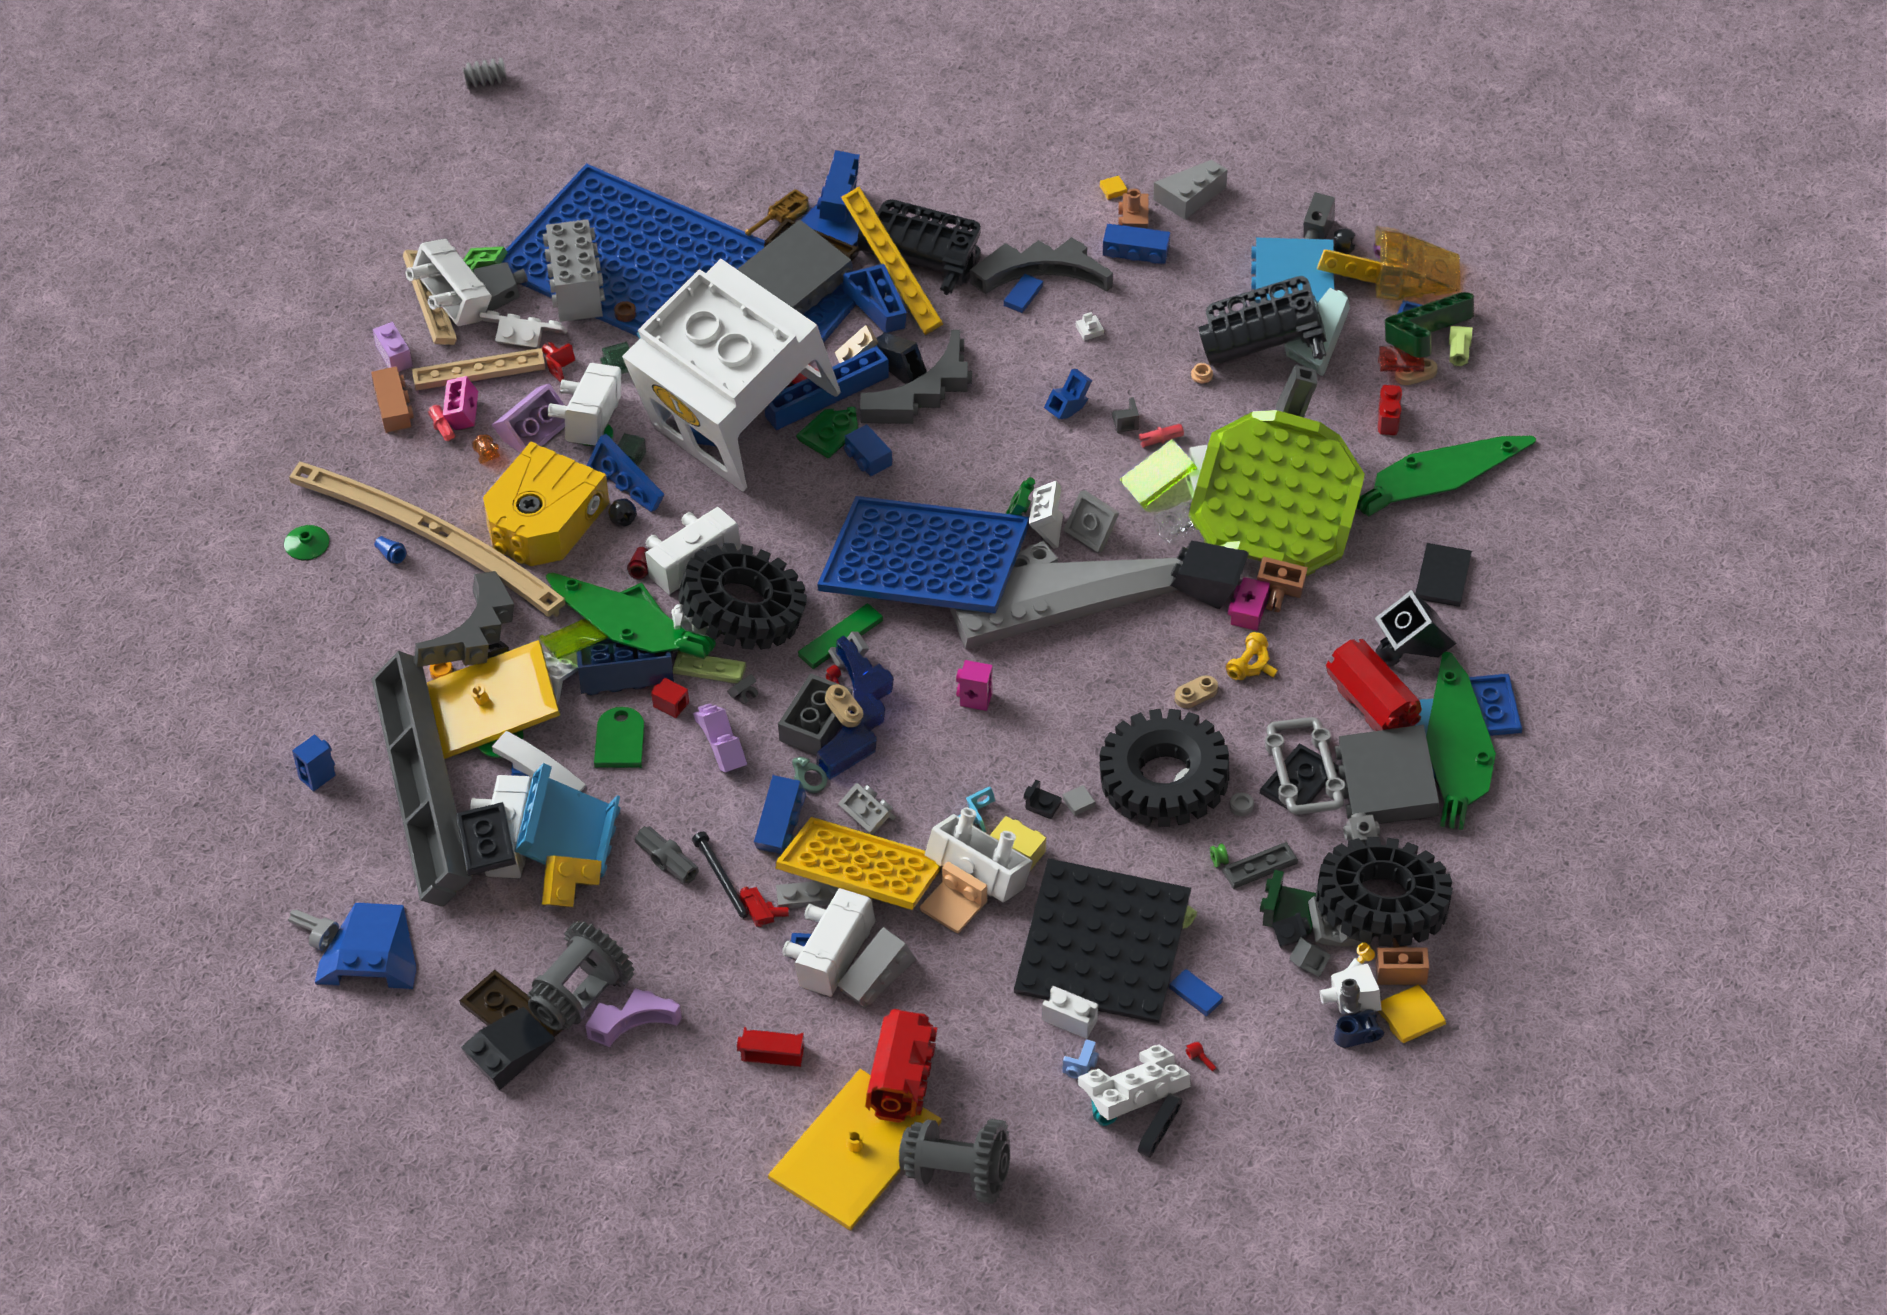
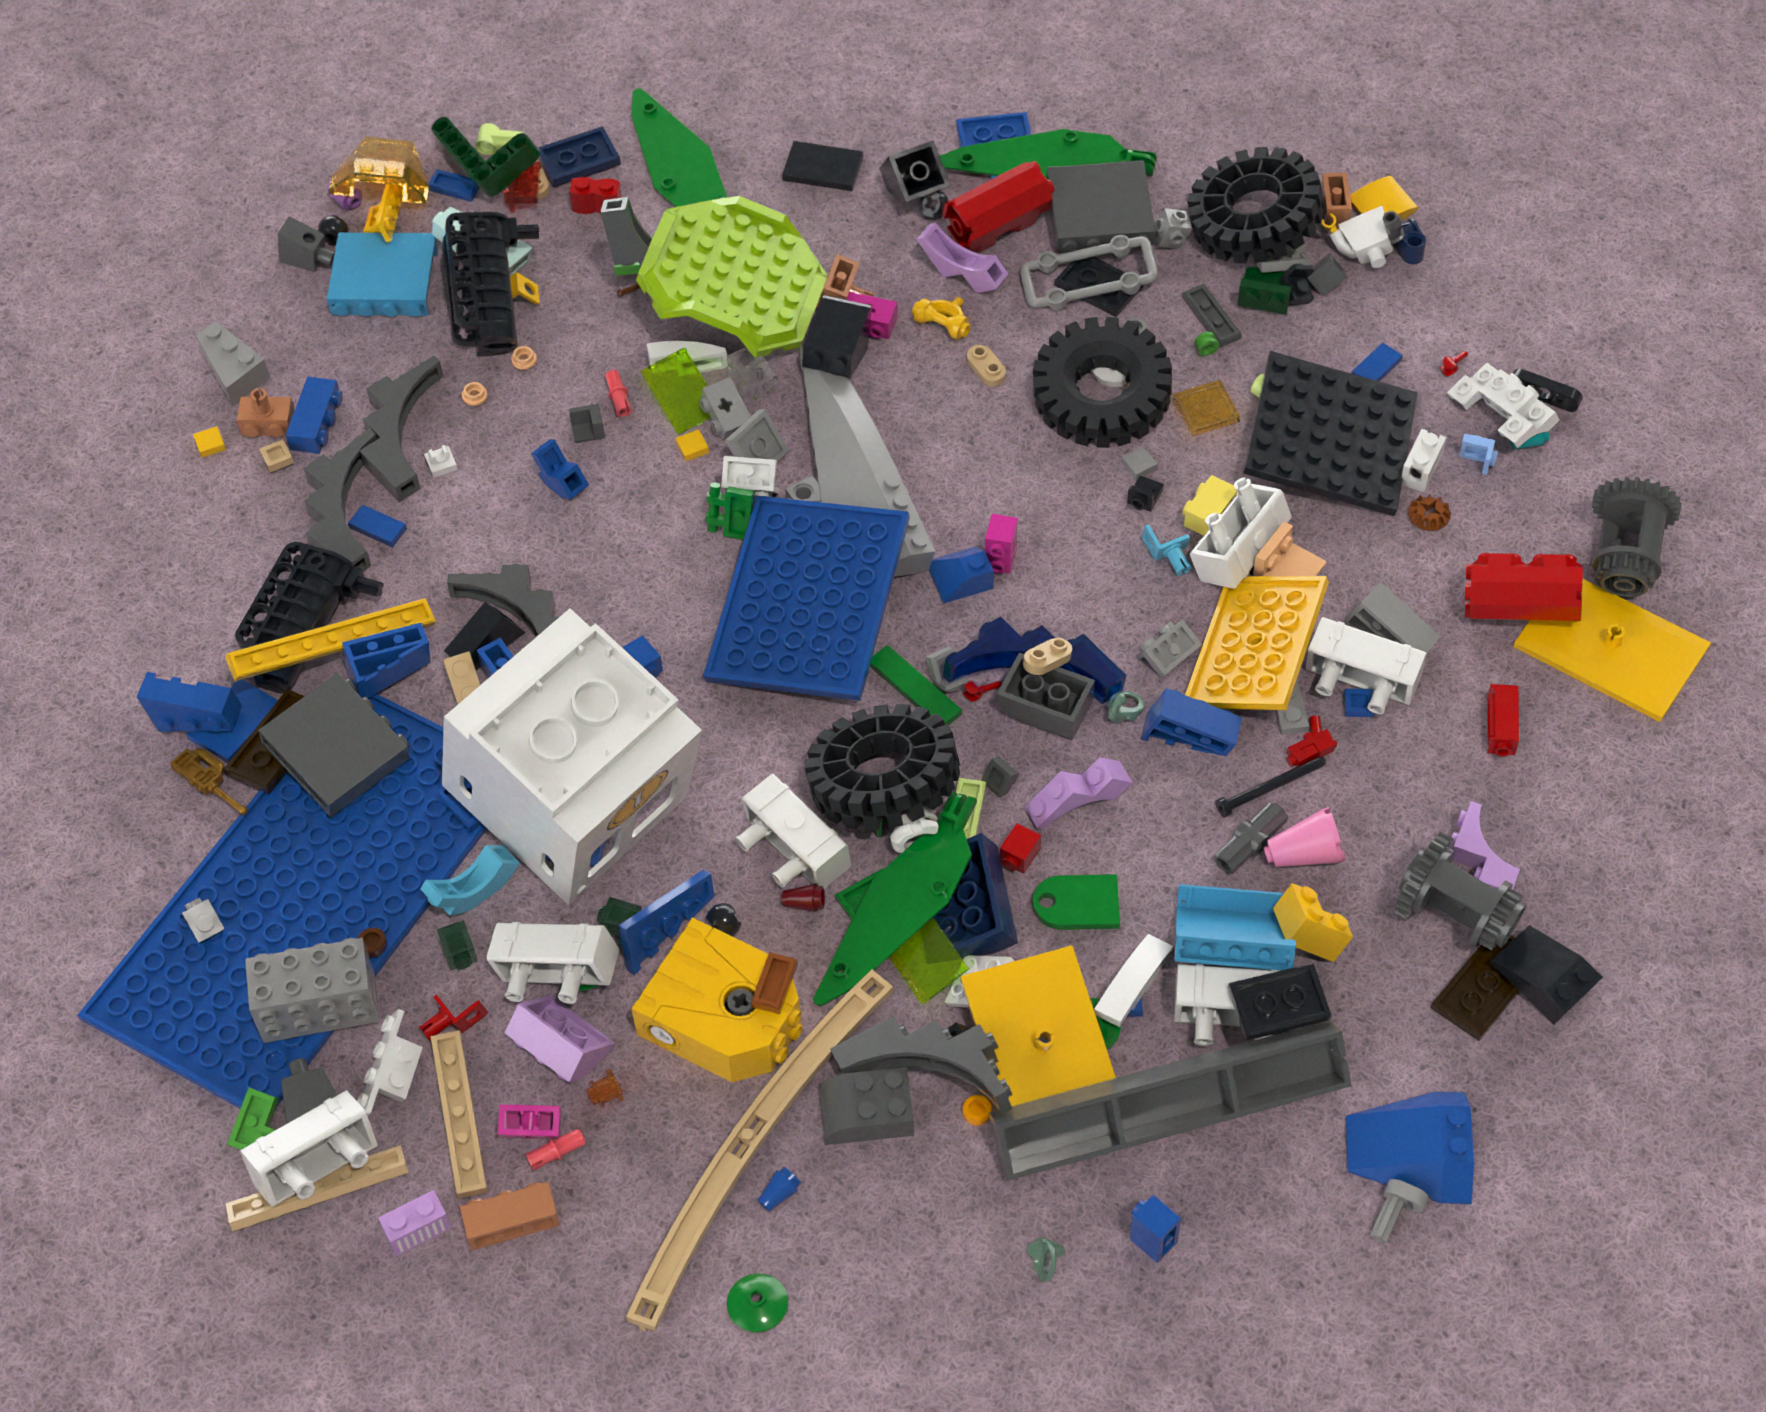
camera: 90 degrees left, 5 degrees up
(314, 701) = (1039, 1251): none -> sand green piece
(447, 600) = (866, 1106): none -> dark grey brick
(539, 520) = (774, 983): none -> dark orange tile
(652, 214) = (202, 919): none -> light grey bracket
(653, 893) = (1307, 842): none -> bright pink cone
(947, 666) = (962, 574): none -> blue slope
(1015, 1027) = (1432, 521): none -> dark orange gear
(1094, 226) = (276, 456): none -> tan plate
(1105, 487) = (692, 445): none -> yellow tile
(1120, 289) = (393, 404): none -> dark grey arch
(1135, 501) = (725, 396): none -> light grey brick
(1144, 853) = (1206, 407): none -> clear yellow tile
(1161, 344) = (476, 389): none -> light nougat plate
(1278, 358) = (518, 288): none -> yellow bracket
(1303, 677) = (951, 259): none -> lavender arch
(1443, 399) = (578, 156): none -> dark blue plate

